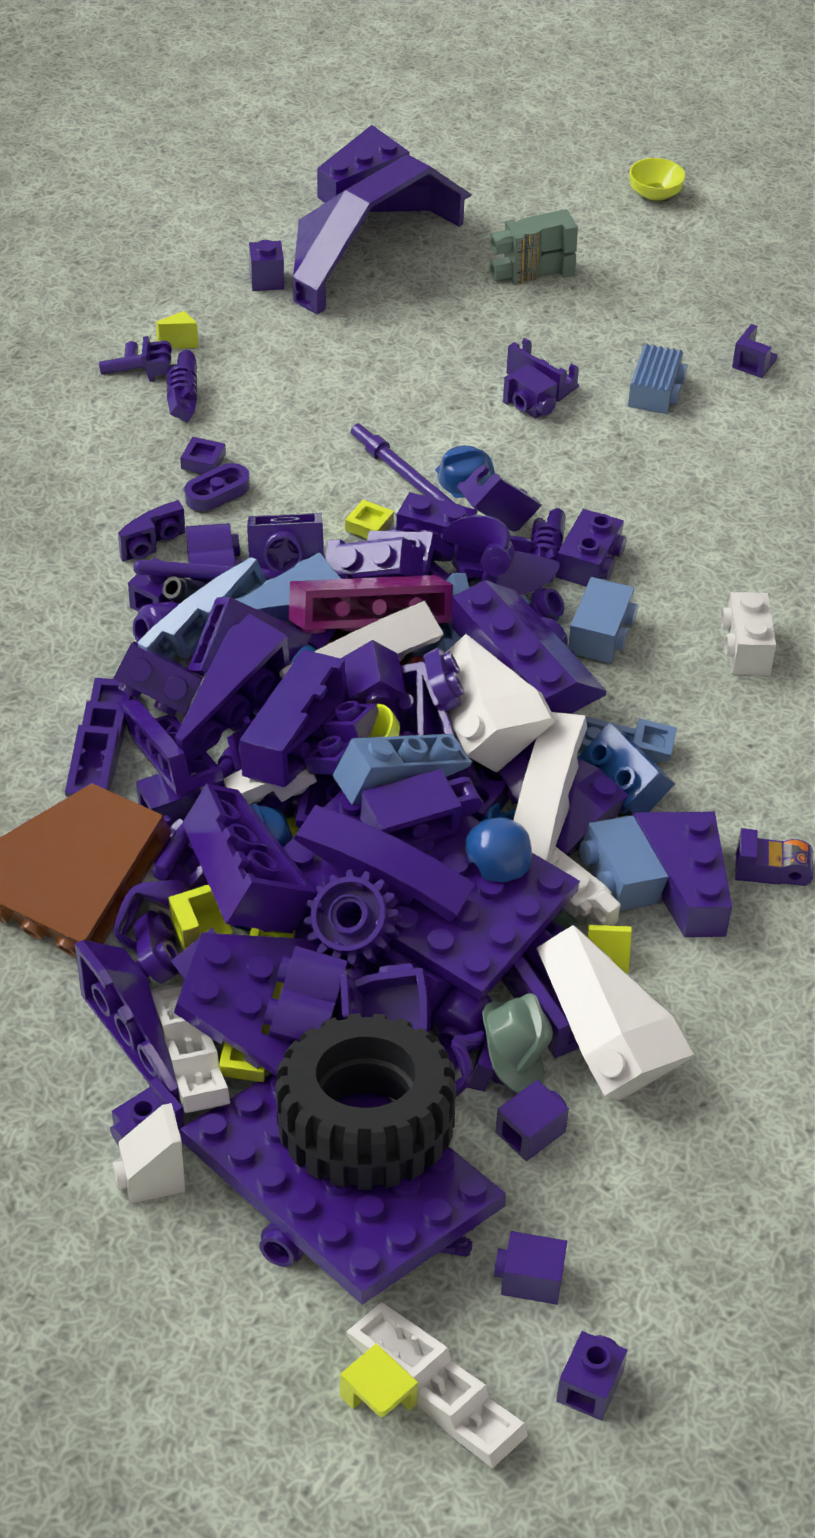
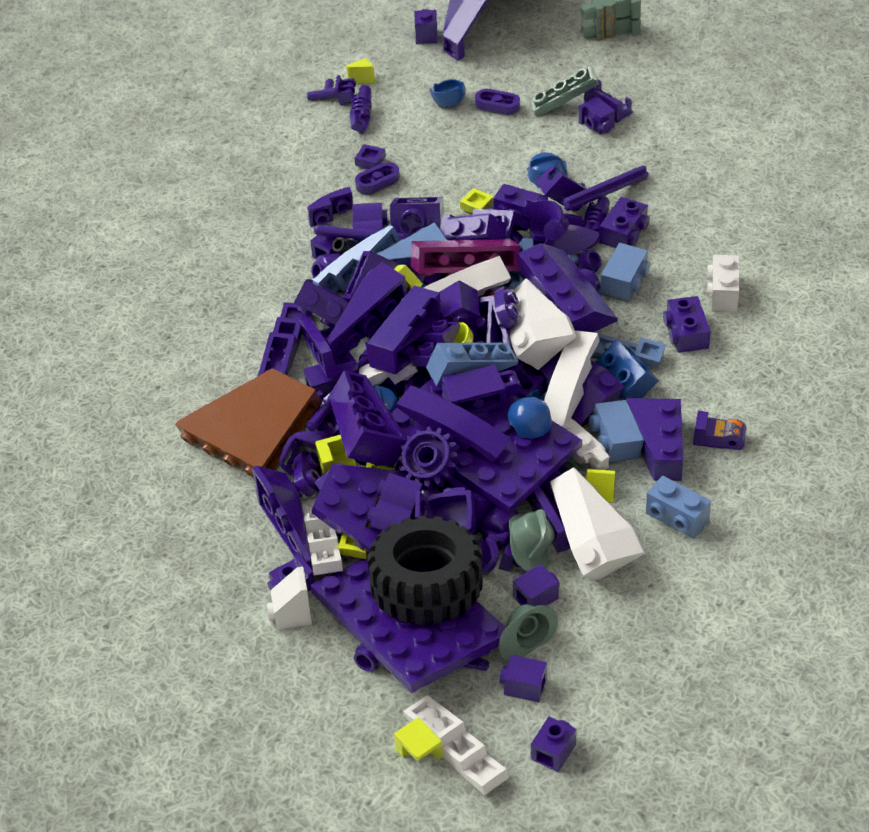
camera: 10 degrees right, 0 degrees up
(296, 641) = (411, 279): none -> neon yellow plate
(309, 360) = (448, 93): none -> blue hair
(380, 448) = (490, 153): dark purple bar -> none
(382, 372) = (497, 101): none -> dark purple plate
(479, 356) = (564, 91): none -> sand green tile
(528, 1187) = (526, 630): none -> sand green piece
(557, 496) = (605, 188): none -> dark purple axle
(657, 379) = (686, 108): medium blue brick -> none
(704, 696) = (687, 324): none -> dark purple brick
(731, 978) = (678, 506): none -> medium blue brick
(751, 355) = (755, 92): dark purple panel -> none

